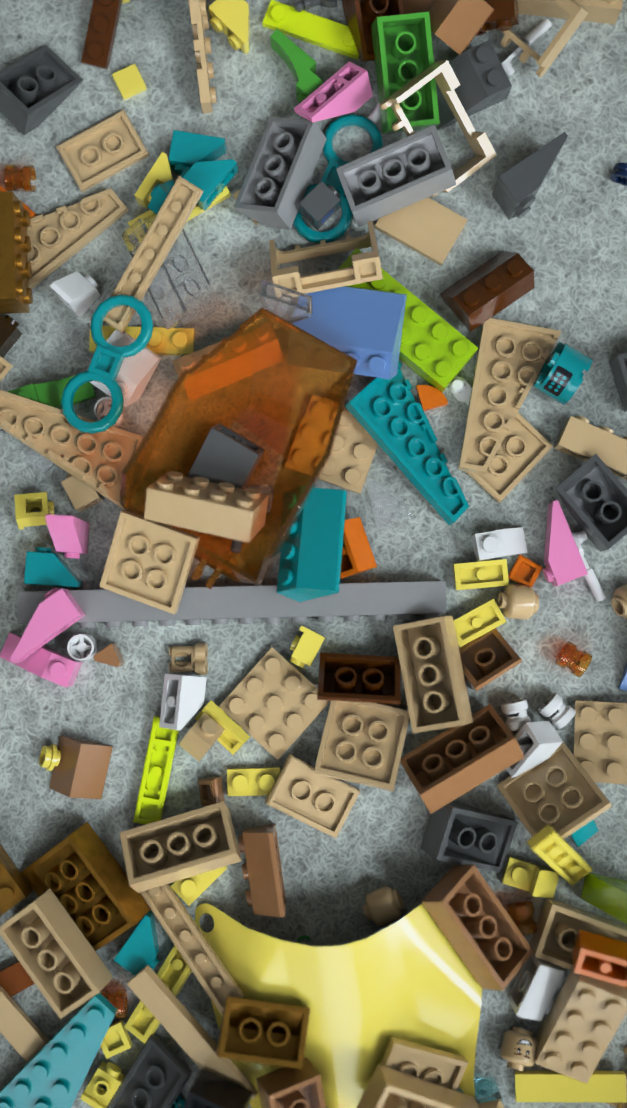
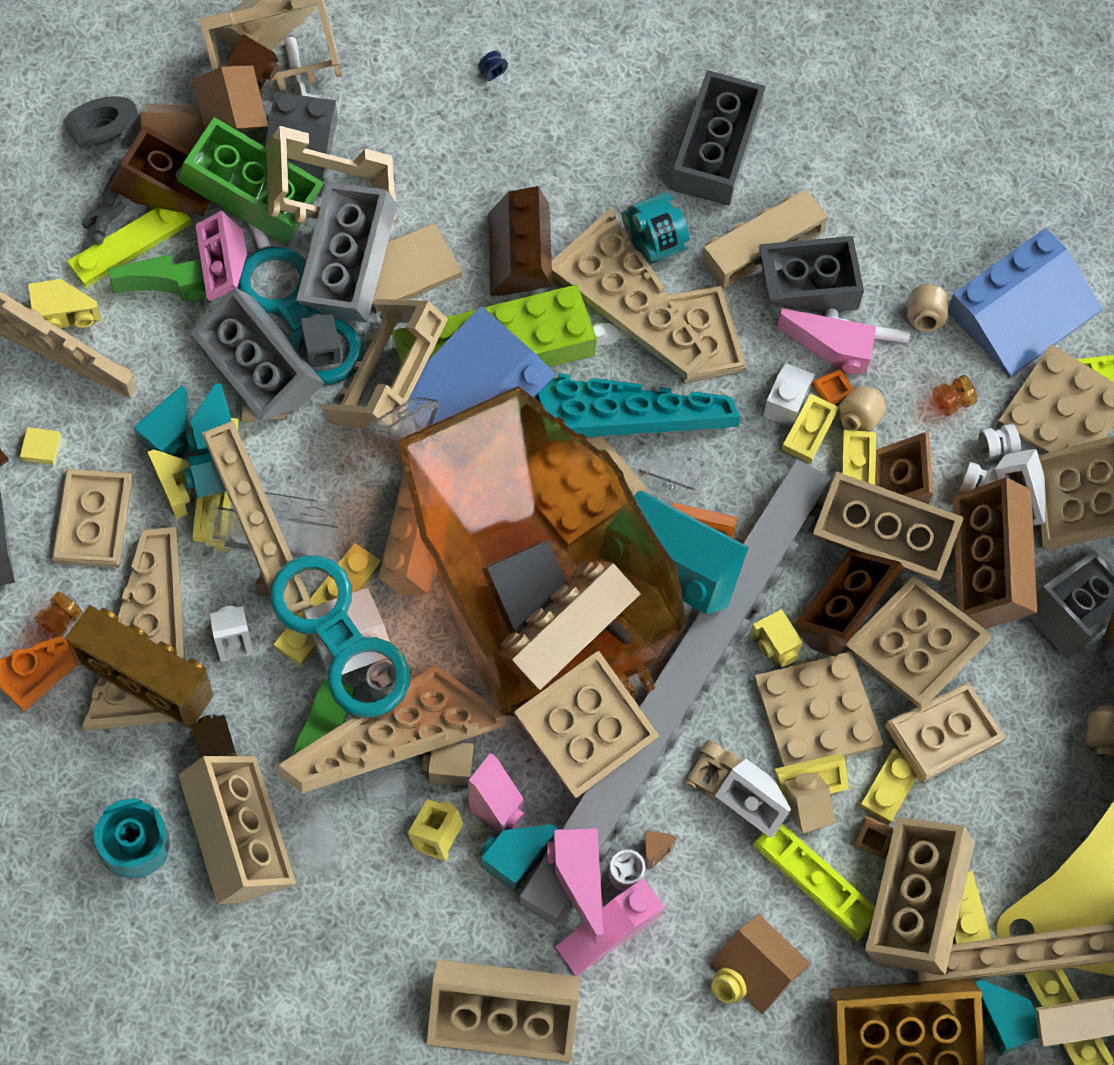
camera: 65 degrees left, 20 degrees down
(263, 870) = (1003, 824): medium nougat slope -> none
(430, 397) = (591, 365): orange tile -> none
(521, 183) = (441, 147): dark grey slope -> none

